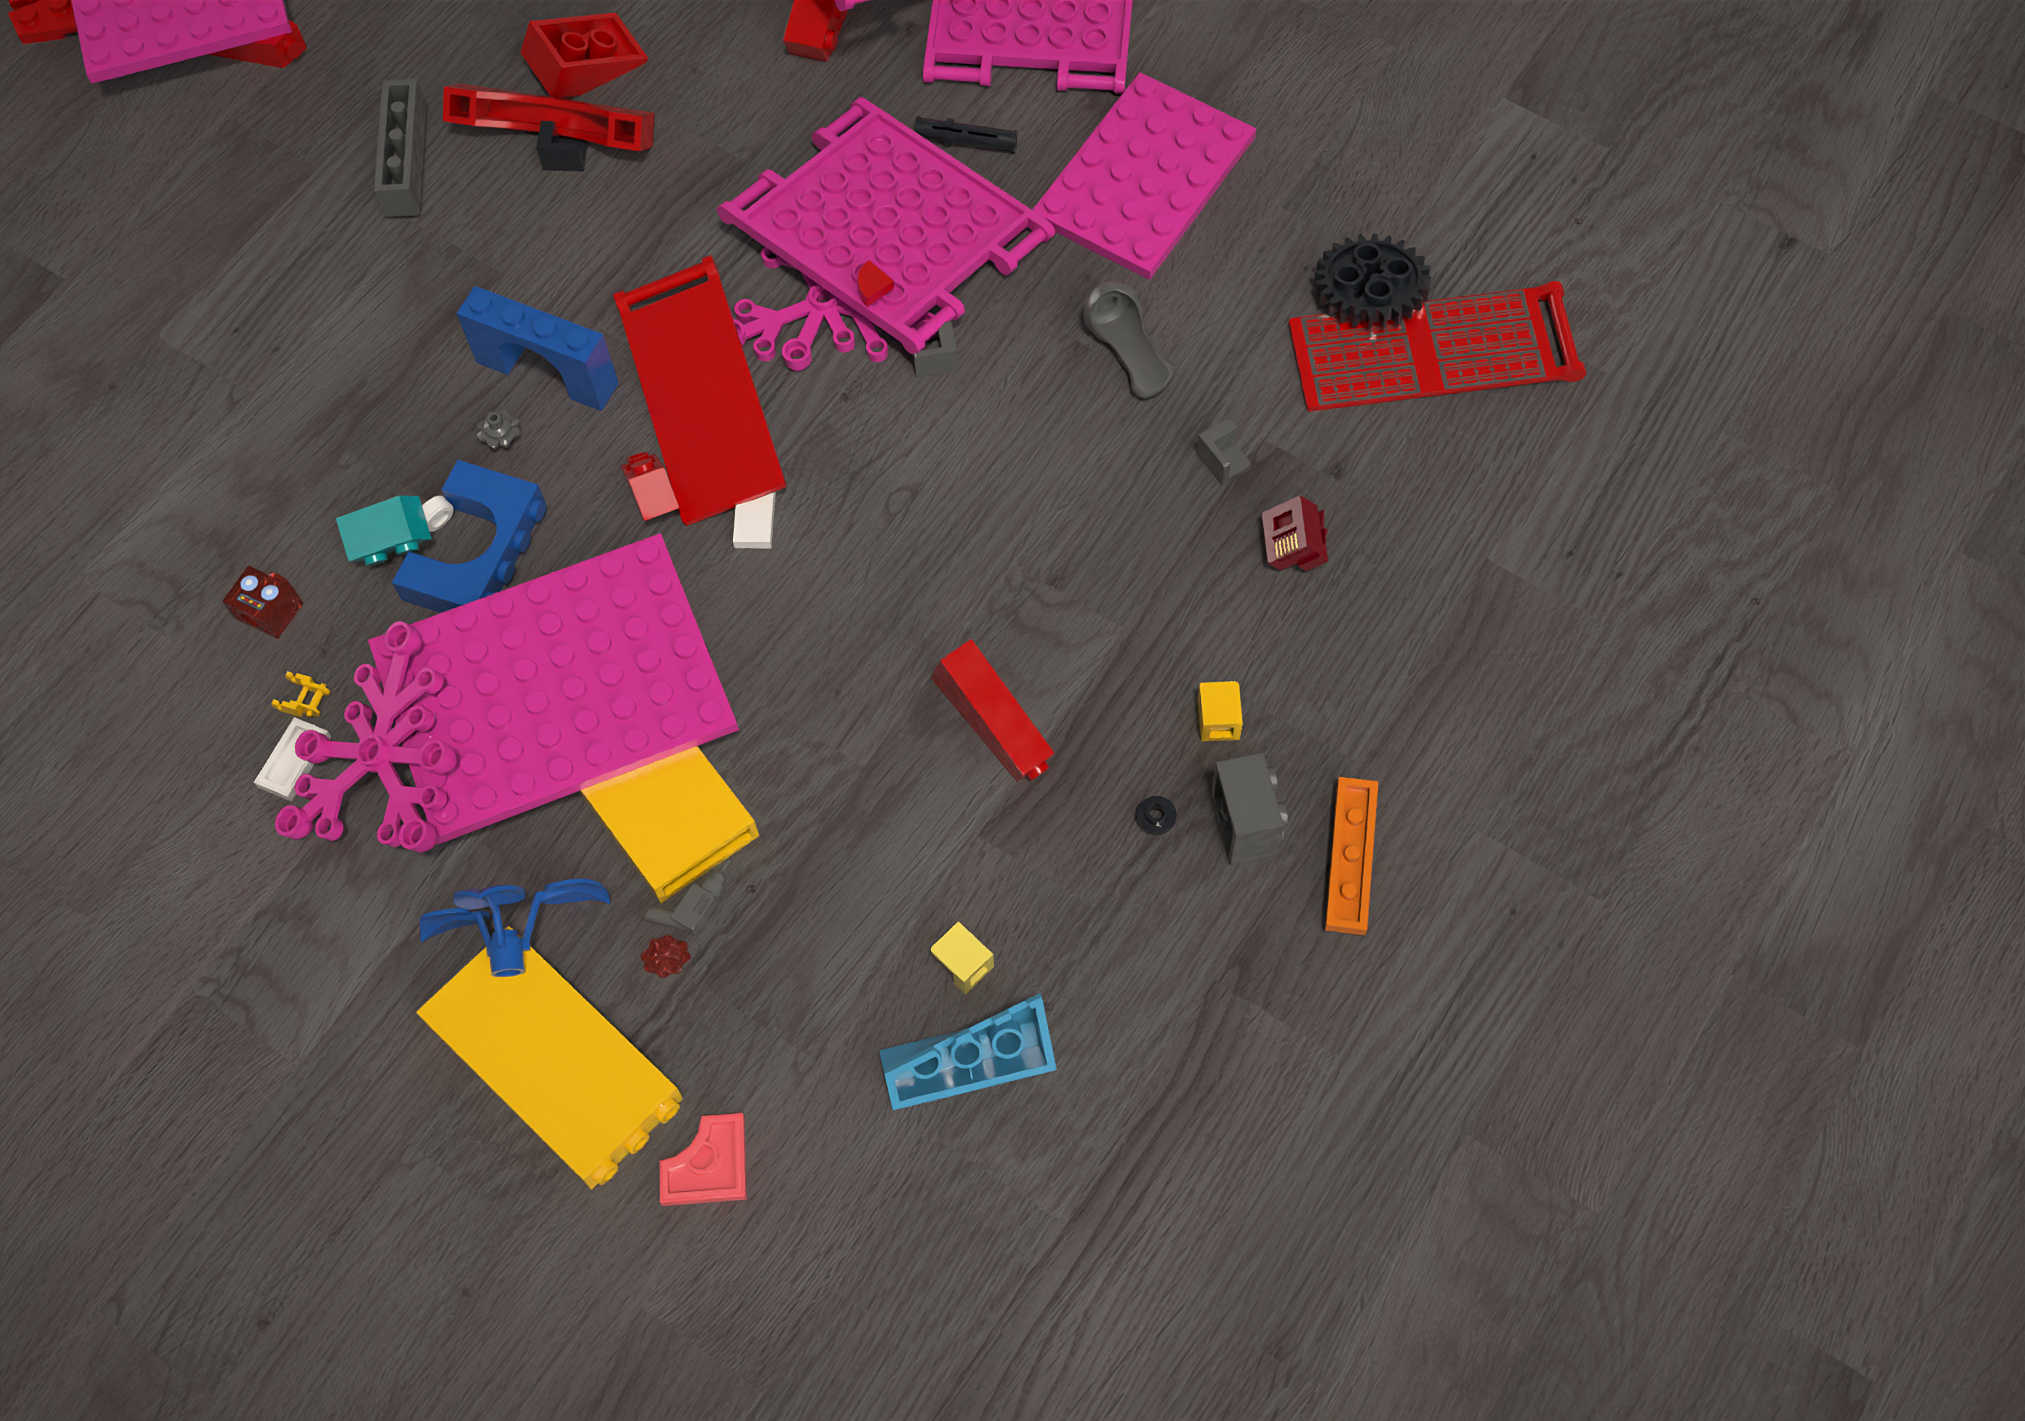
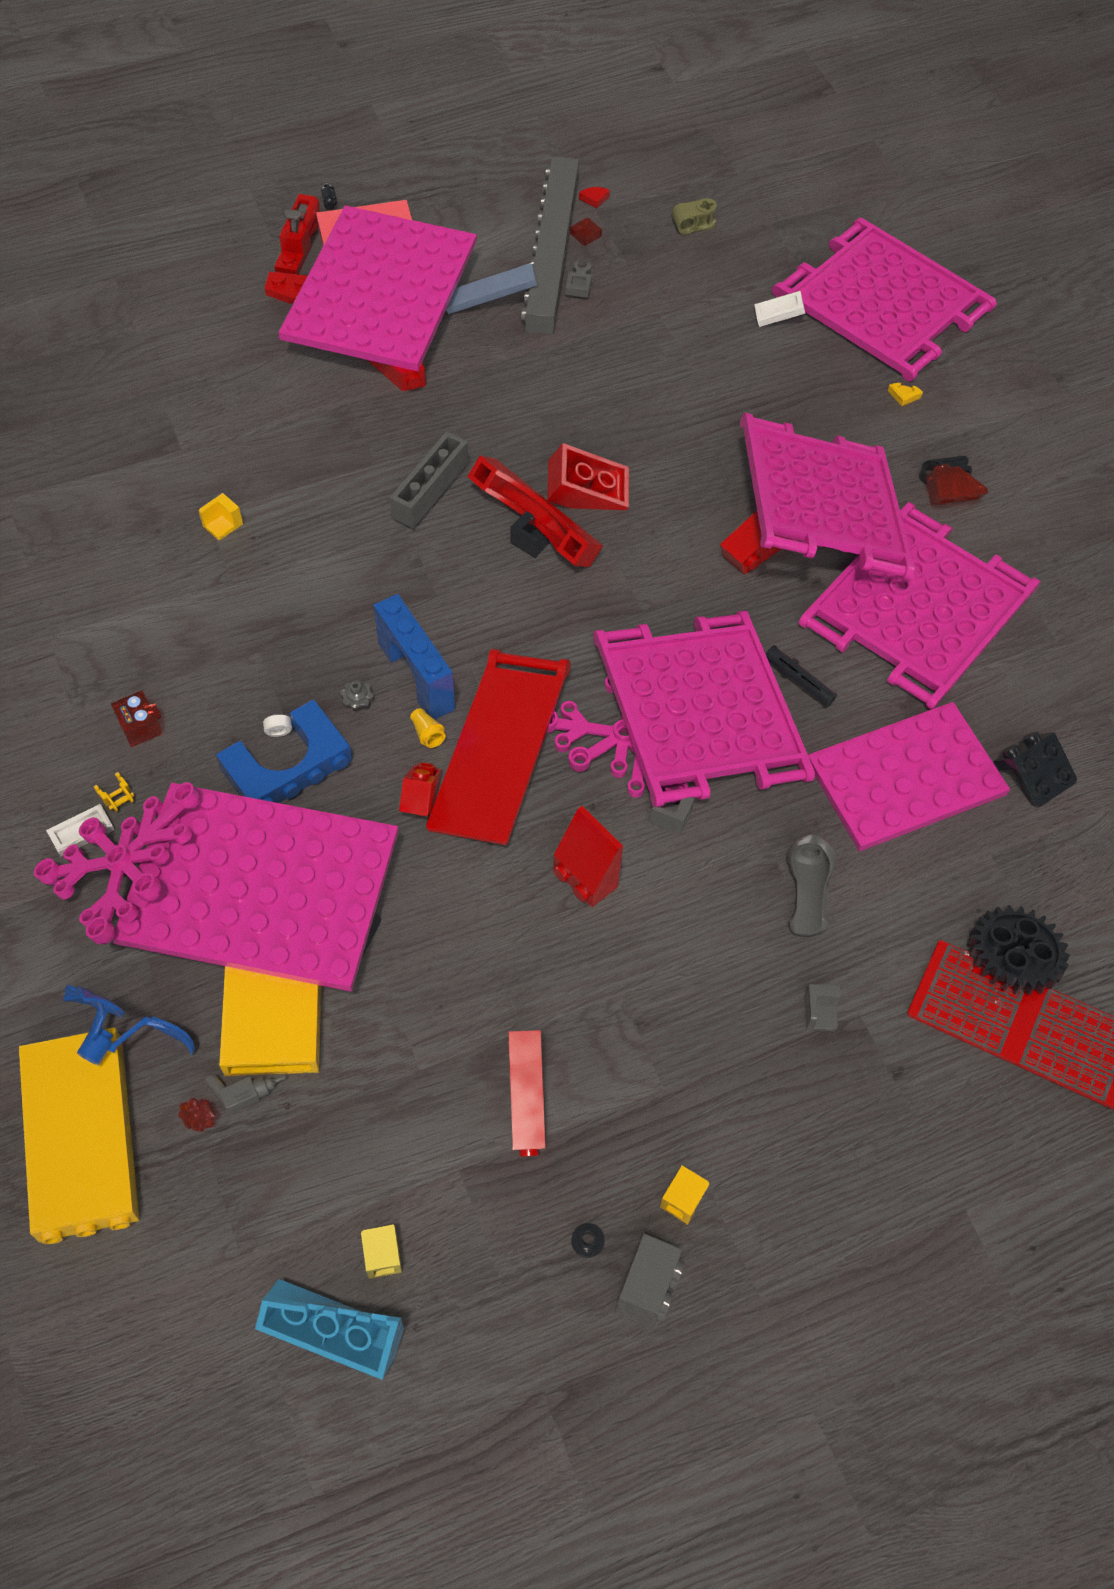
camera: 30 degrees right, 5 degrees down
(181, 326) = (220, 516): none -> yellow panel
(384, 529) = (236, 716): teal brick -> none
(608, 419) = (428, 729): none -> yellow cone
(710, 1167) = (119, 1280): coral tile -> none
(754, 523) = (470, 856): white tile -> none
(873, 283) = (656, 741): red tile -> none
(888, 443) = (588, 858): none -> red slope
(1270, 87) = (1040, 766): none -> black bracket
(1295, 534) = (830, 1101): dark red piece -> none
(1351, 856) = (703, 1368): orange plate -> none

